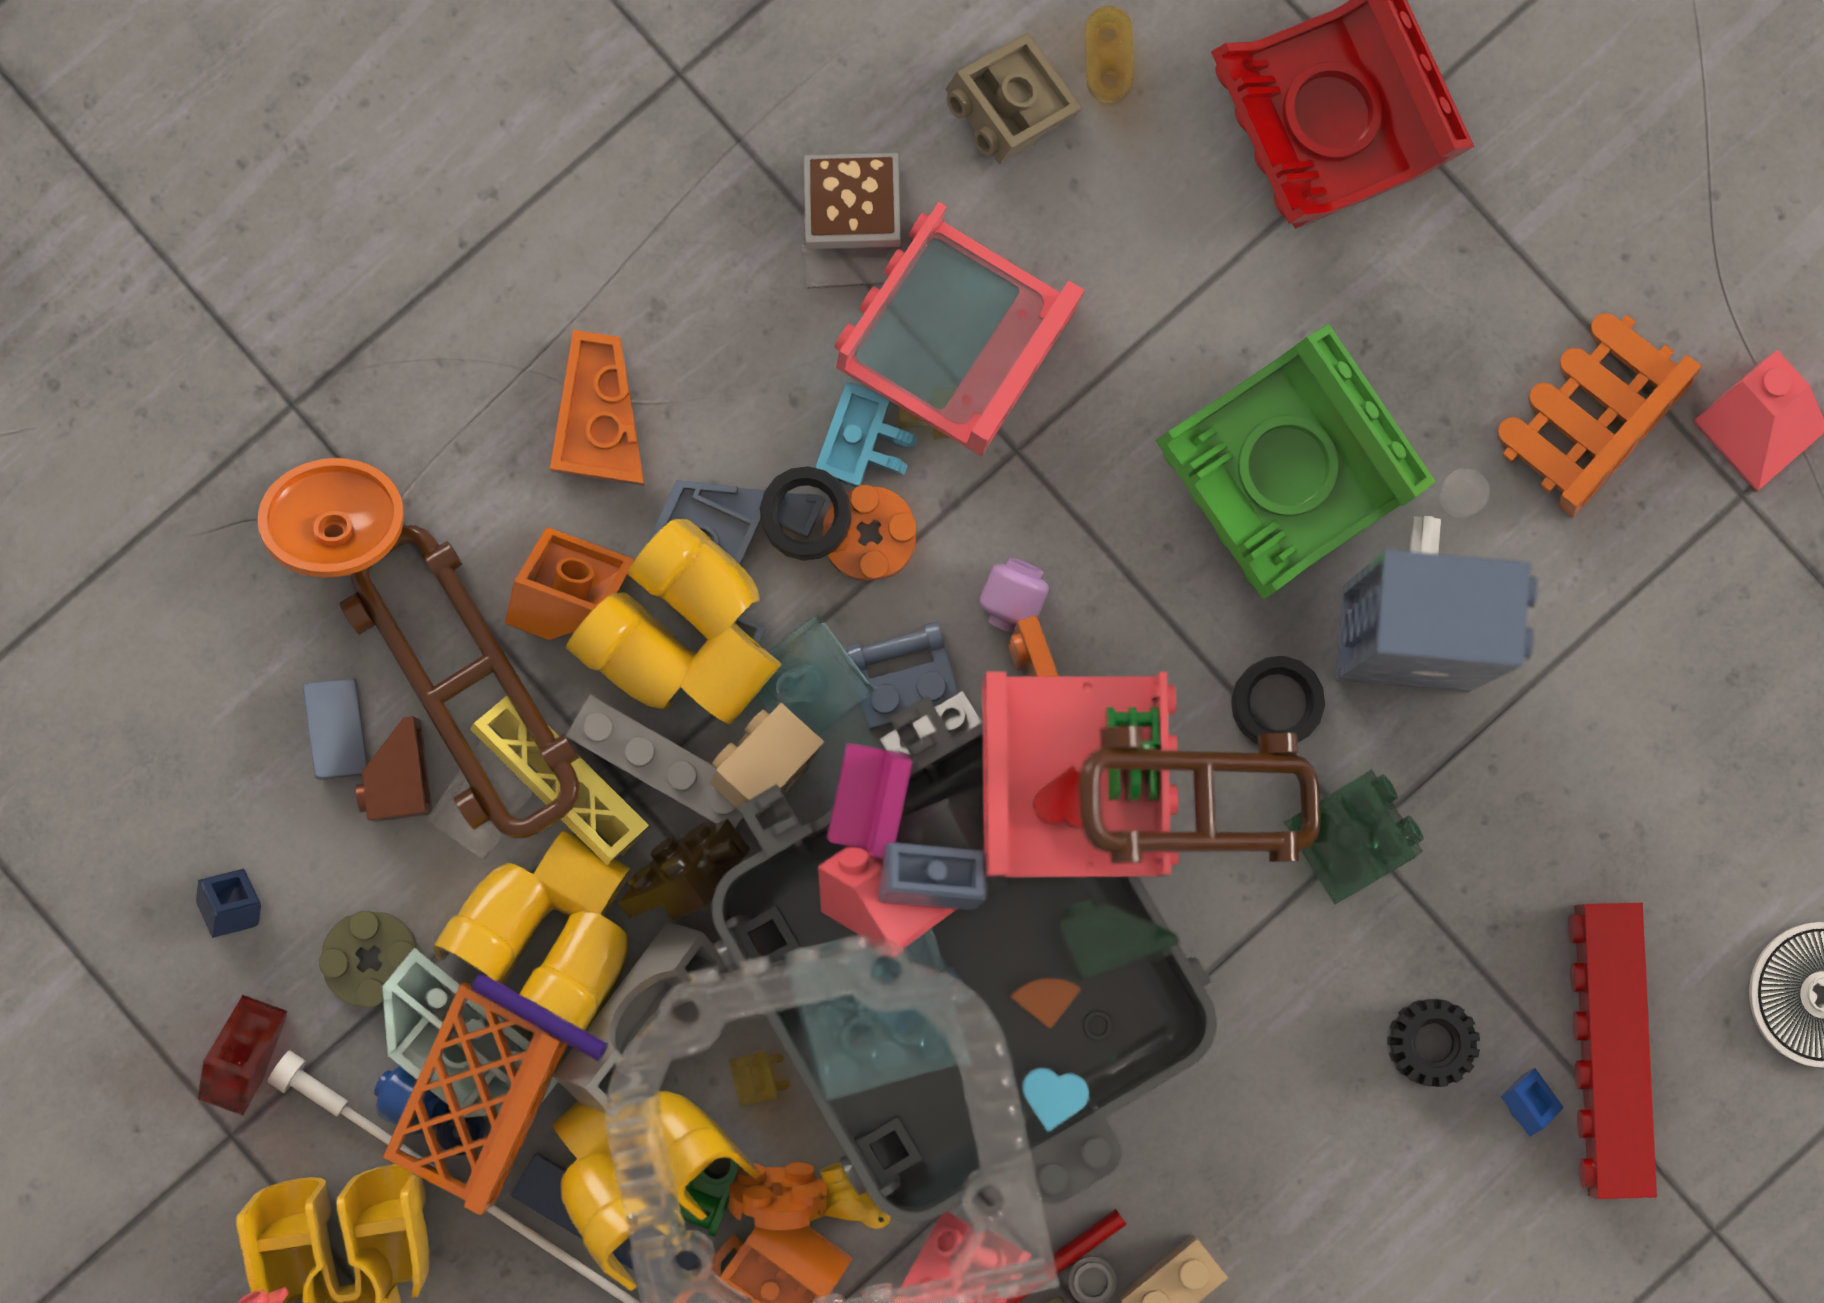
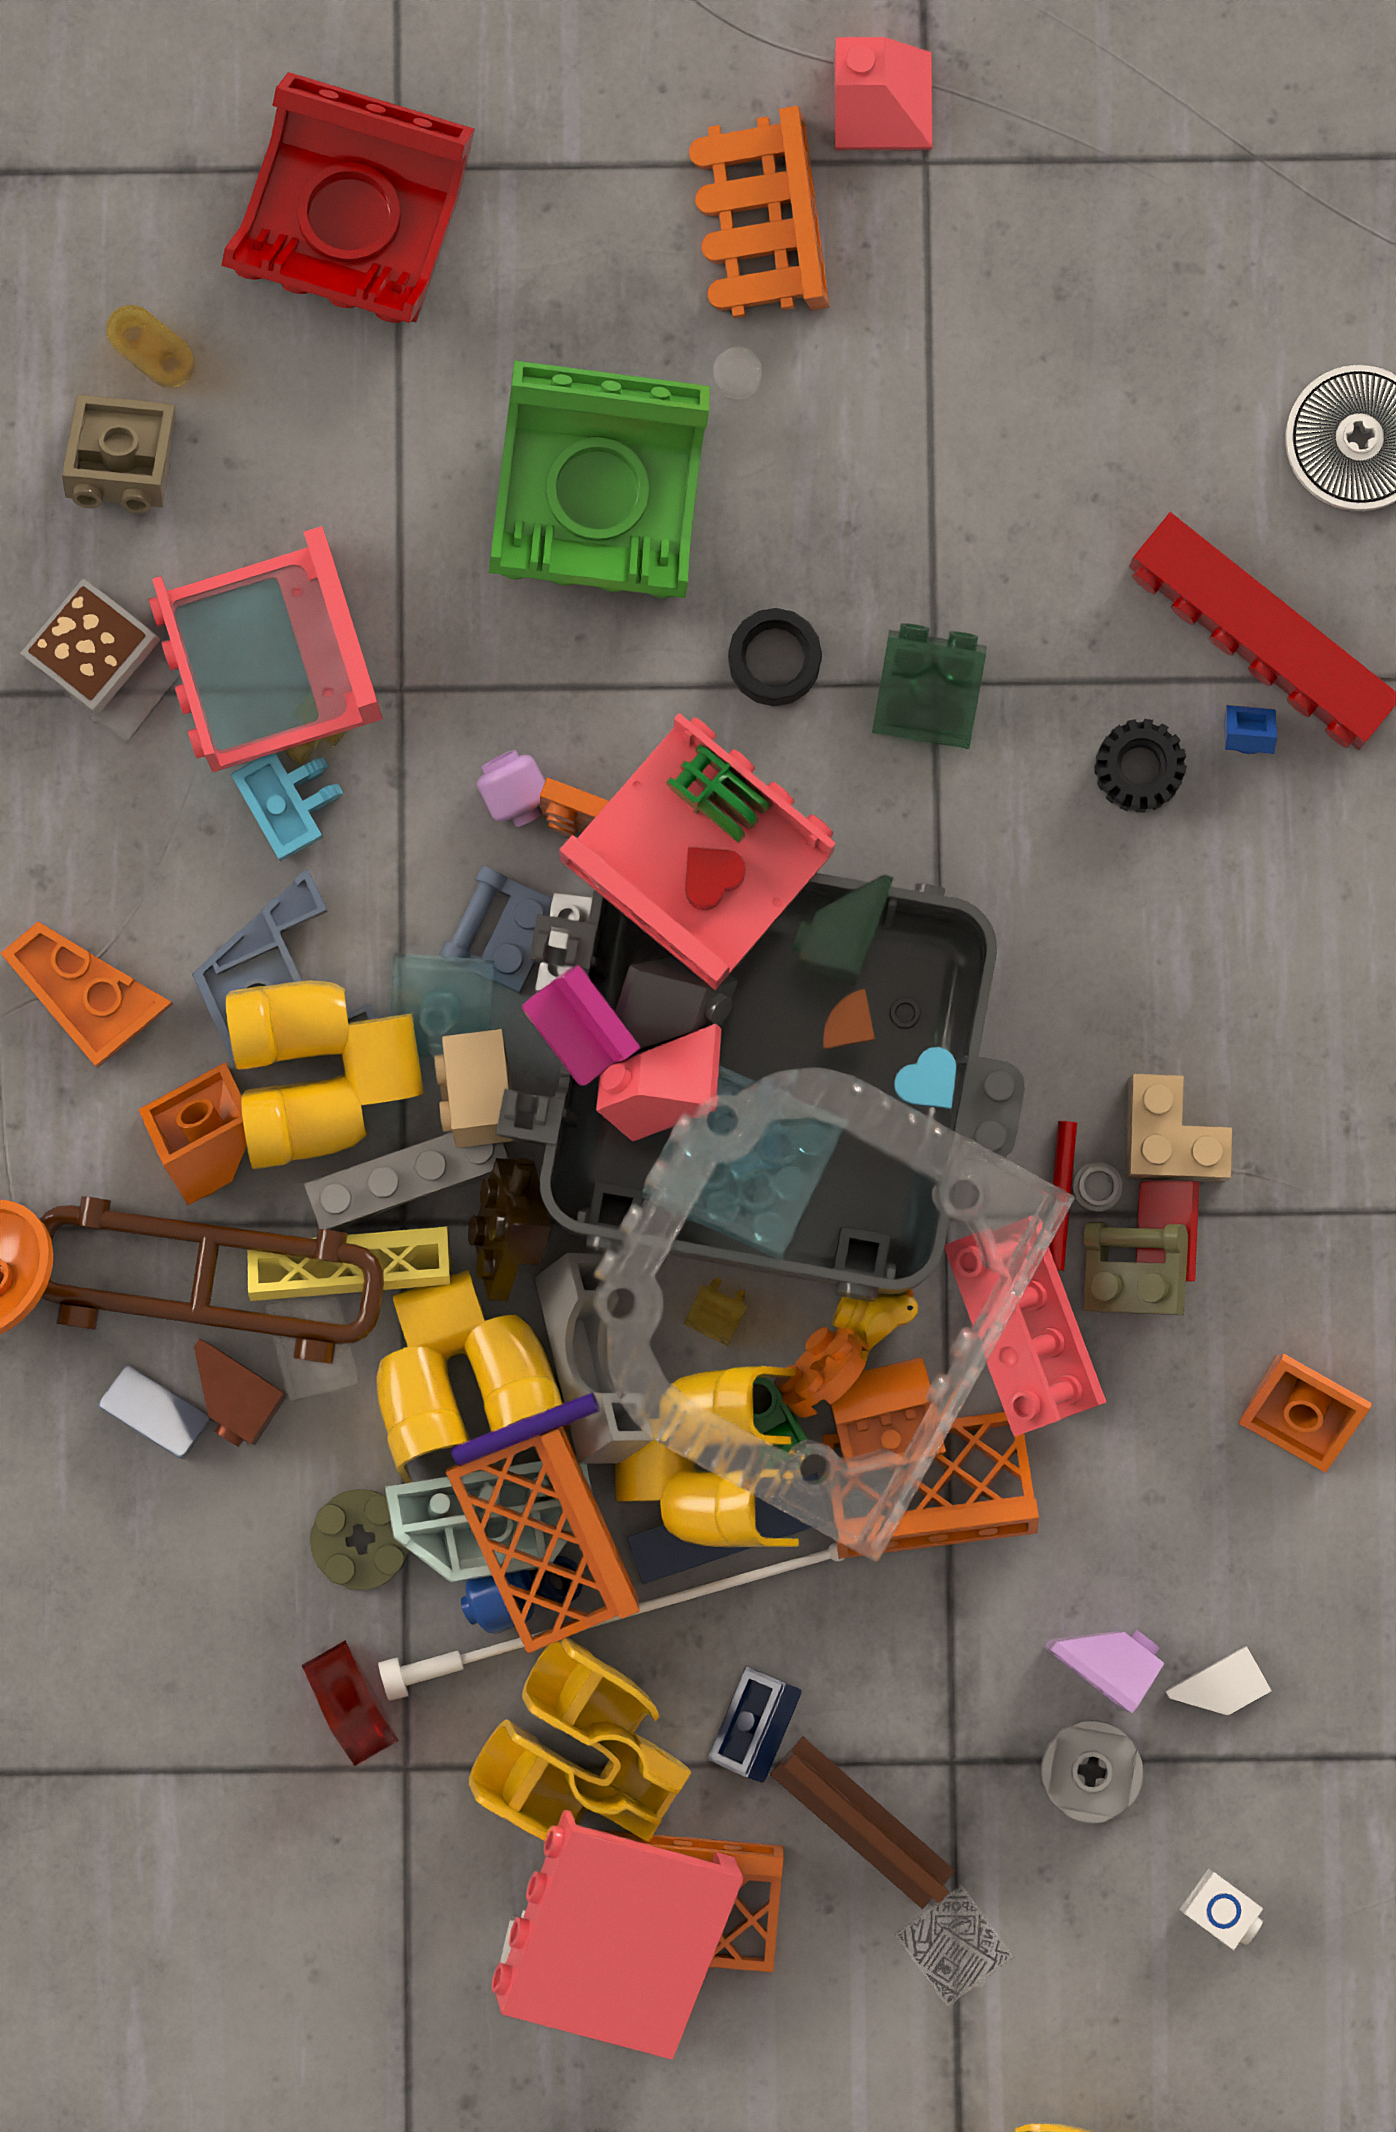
camera: 50 degrees left, 0 degrees up
(228, 903) = (219, 1614): dark blue slope -> none
(805, 477) = (287, 862): black tyre -> none
(896, 528) = (390, 875): orange plate -> none
(932, 876) = (681, 1027): sand blue slope -> none
(1275, 755) = (814, 693): reddish brown bar -> none
(1434, 617) = (814, 477): sand blue piece -> none

